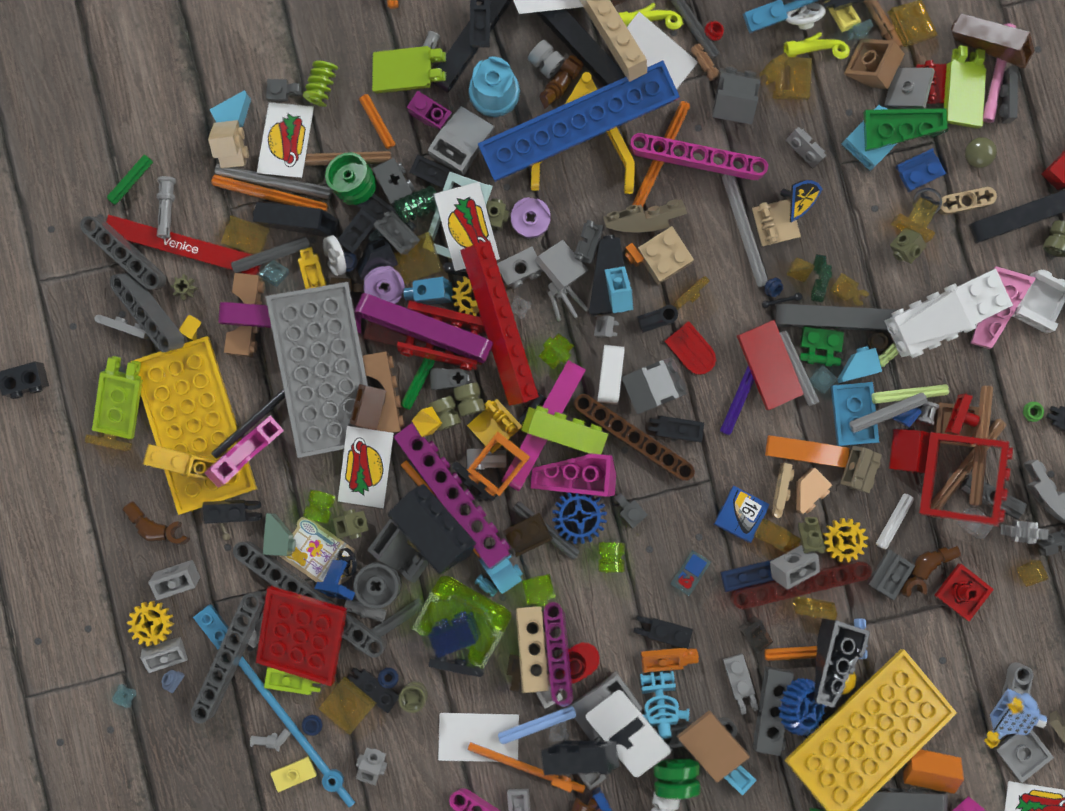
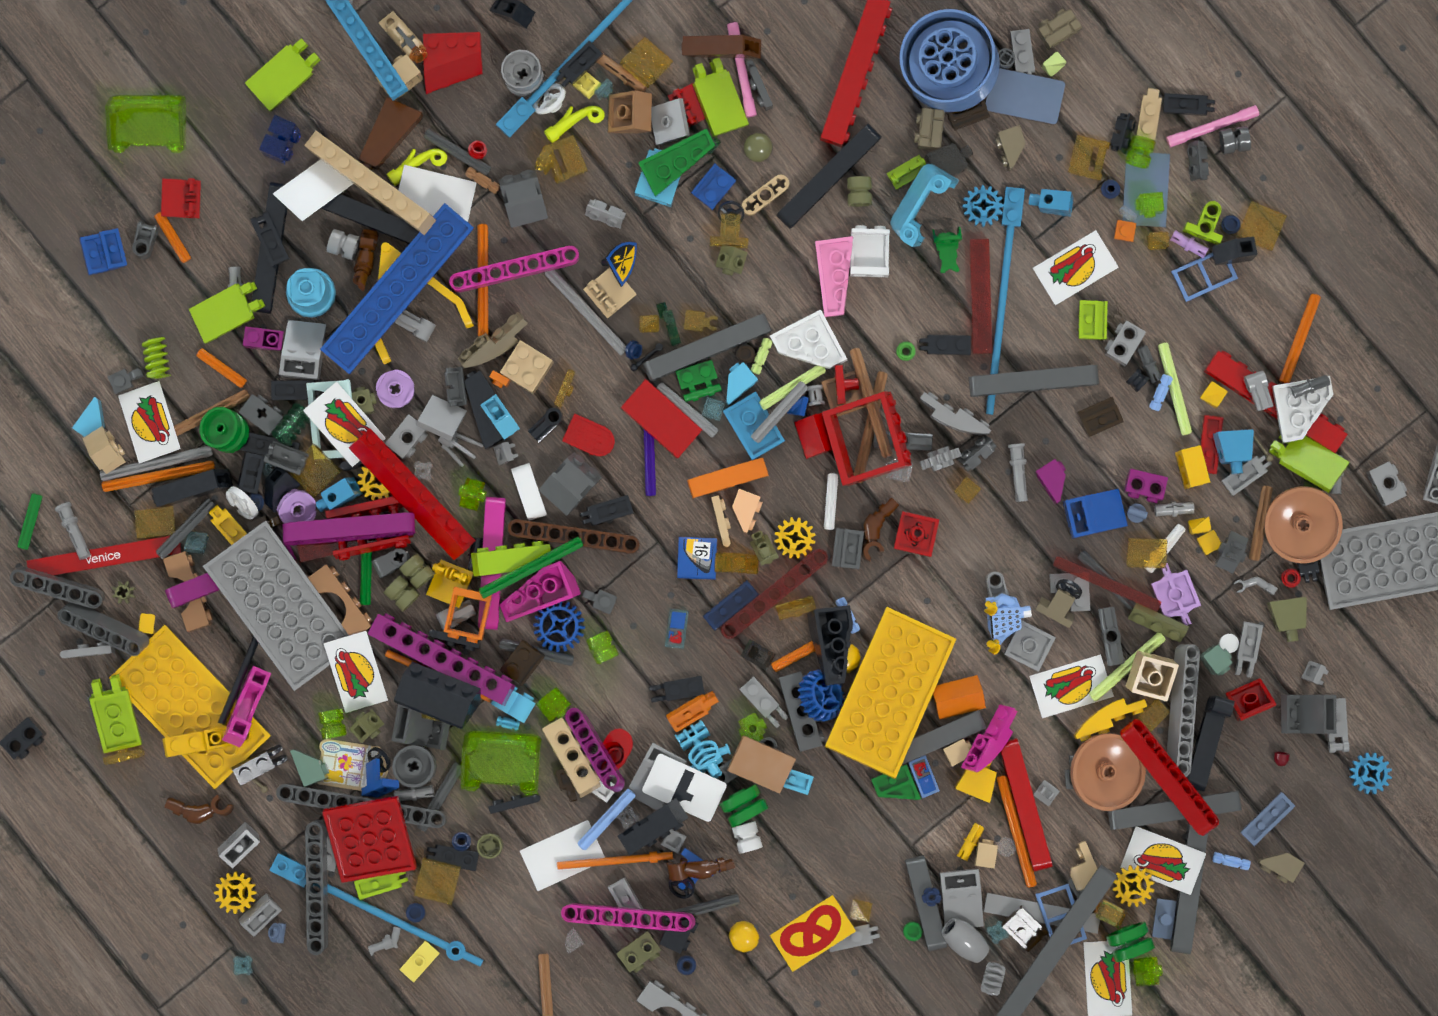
camera: 30 degrees left, 0 degrees up
(367, 407) = (333, 619): reddish brown hinge -> none
(371, 766) = (482, 920): light grey brick -> none
(426, 421) = (390, 607): yellow slope -> none
(454, 633) = (498, 776): clear blue piece -> none
(562, 782) = (649, 856): orange plate -> none
(580, 448) = (531, 567): none -> green axle
(581, 171) = (418, 326): none -> light grey piece
(718, 697) = (750, 720): none -> clear neon green brick
(794, 567) = (760, 581): light grey brick -> none
(861, 469) = (780, 471): dark tan brick -> none
(947, 314) = (789, 304): white wedge -> none
(952, 364) = (810, 342): none -> white plate

